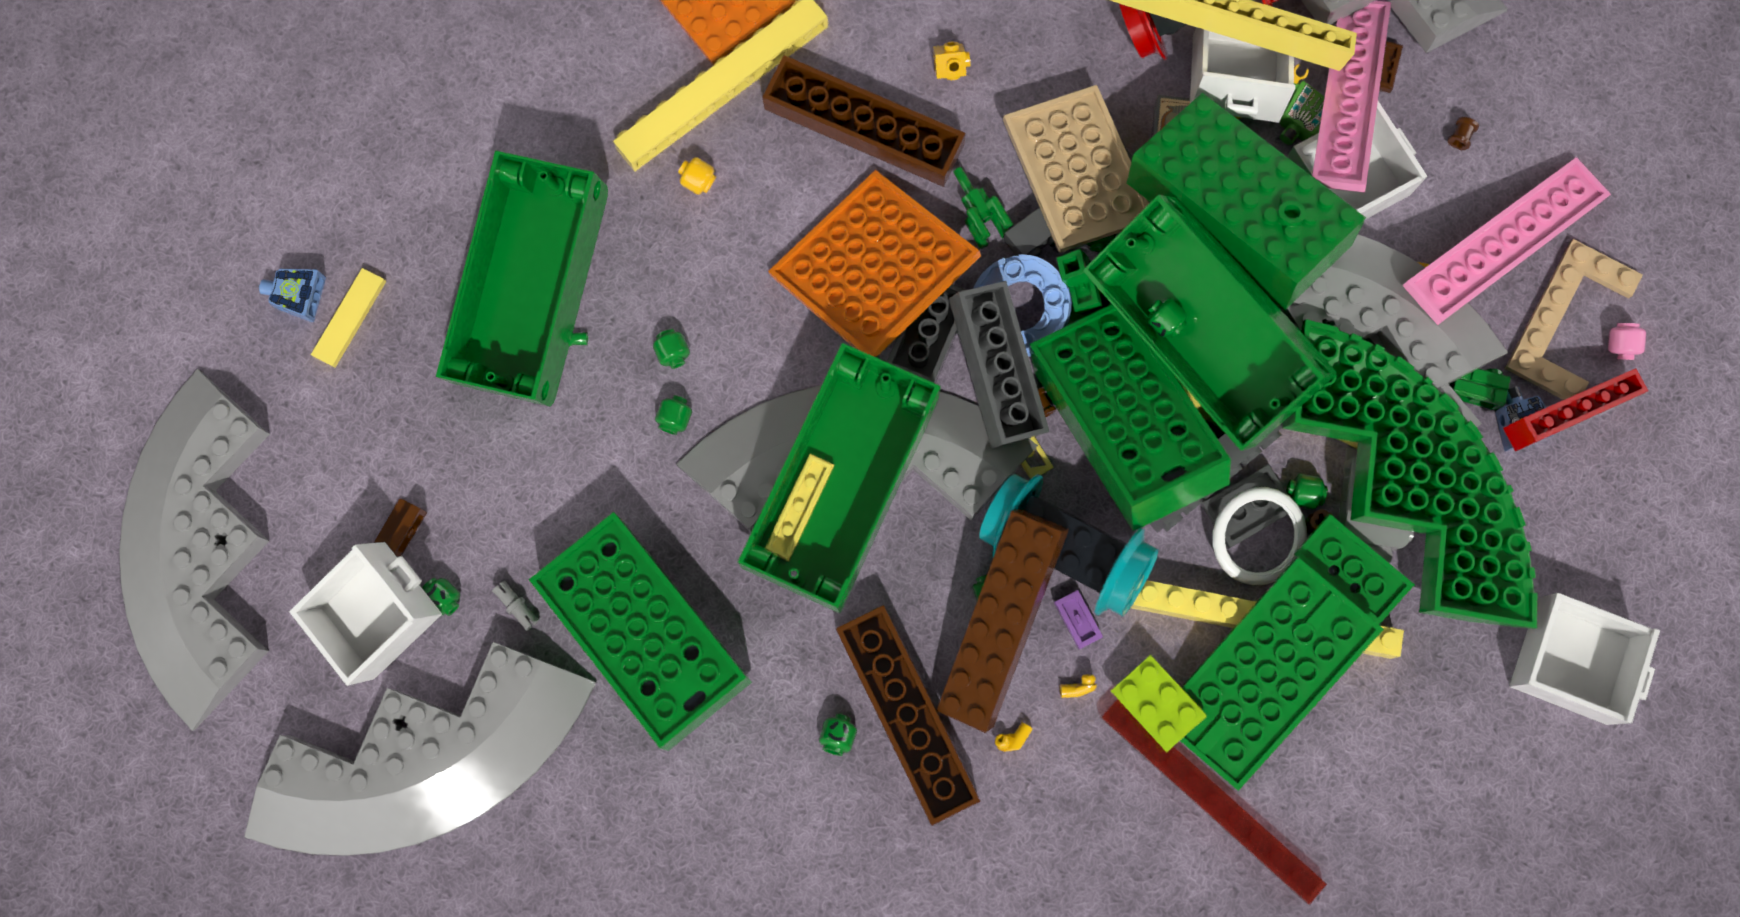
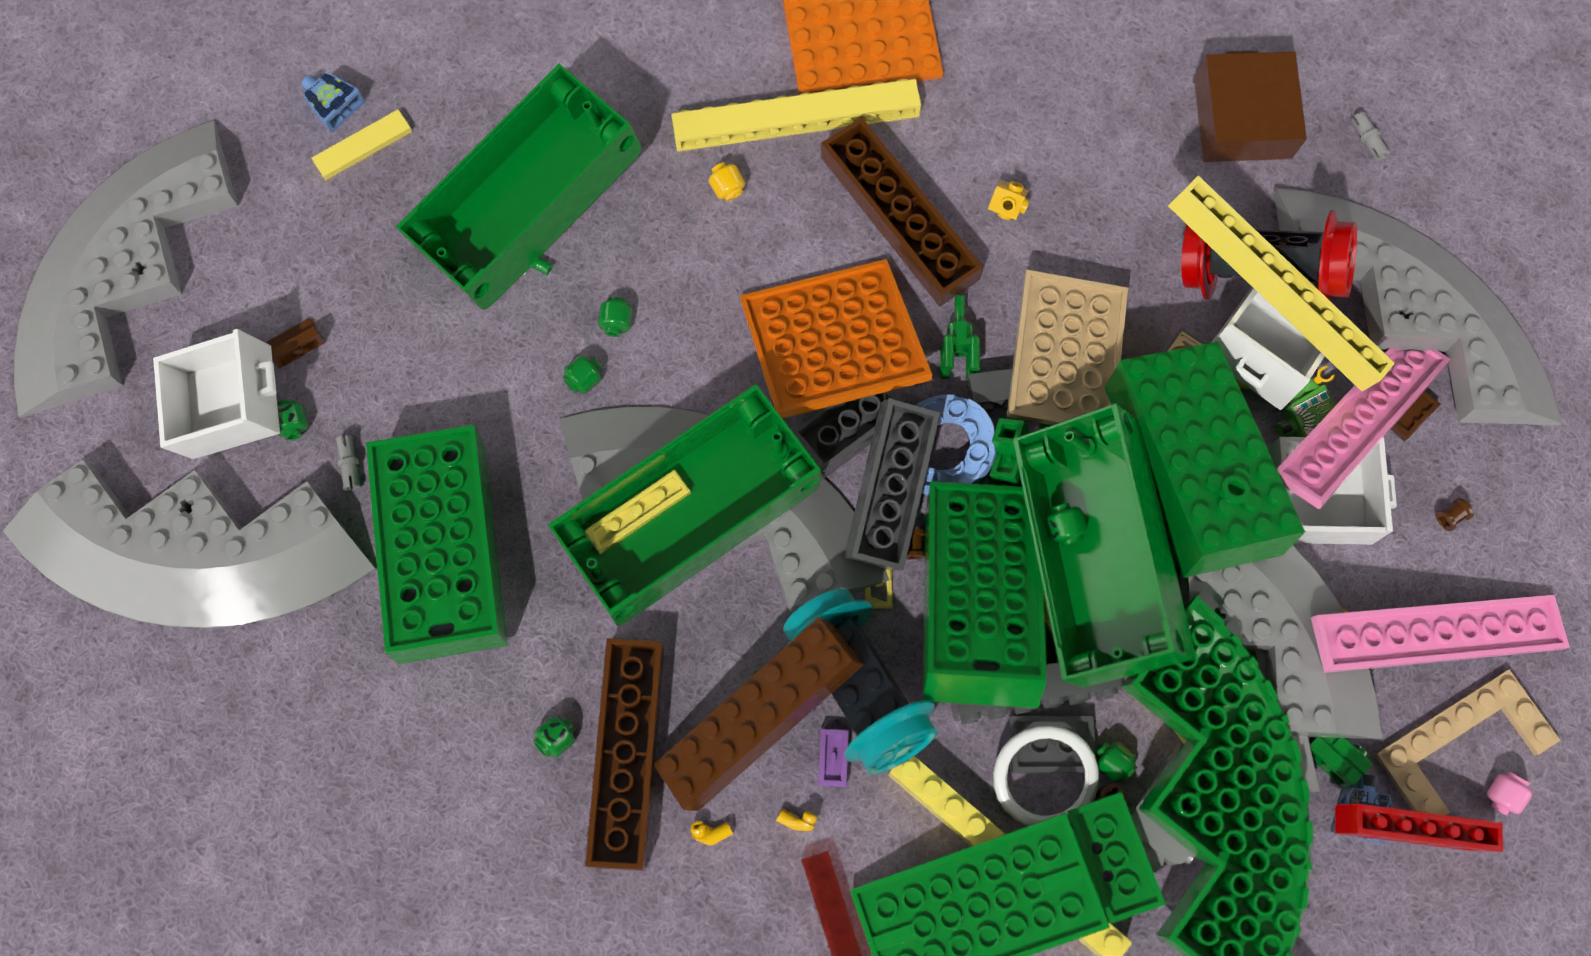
camera: 25 degrees right, 5 degrees down
(1158, 703) = (860, 876): lime plate -> none

